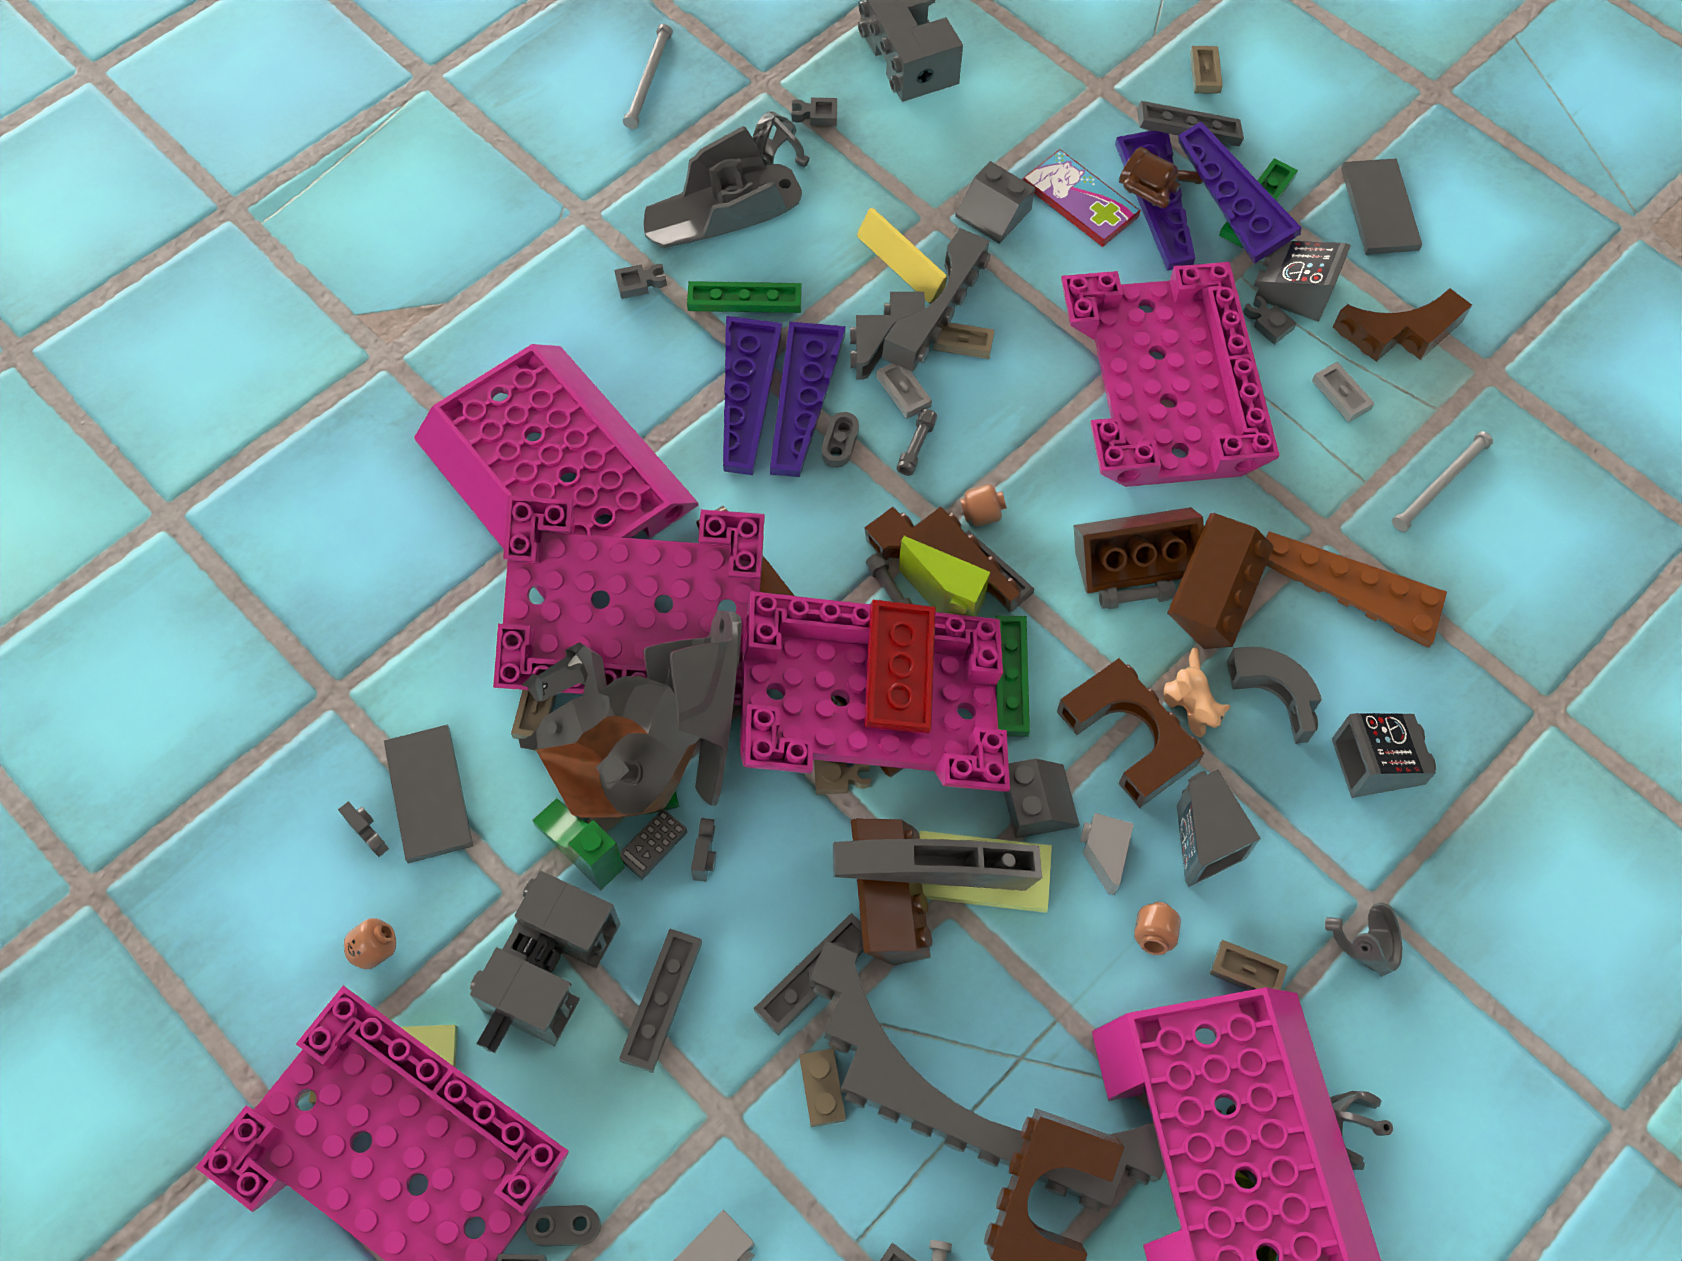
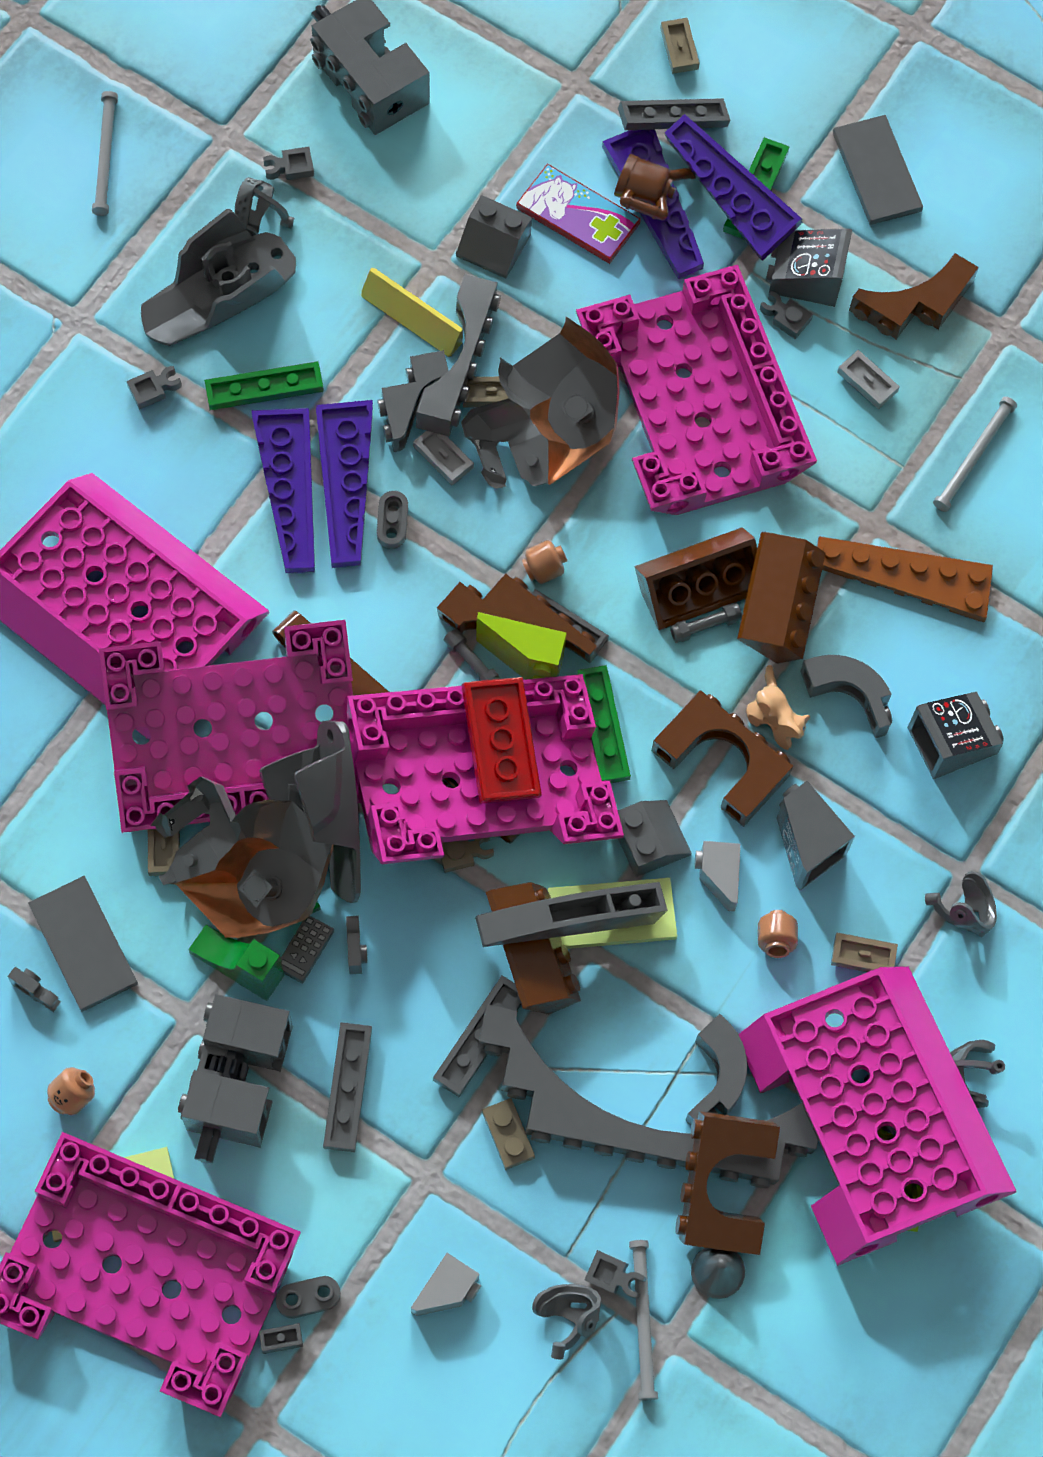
camera: 15 degrees left, 5 degrees up
(908, 460) = (463, 528): dark grey bar -> none
(1022, 363) = (555, 412): none -> dark grey piece
(1081, 1059) = (728, 1054): none -> dark grey arch

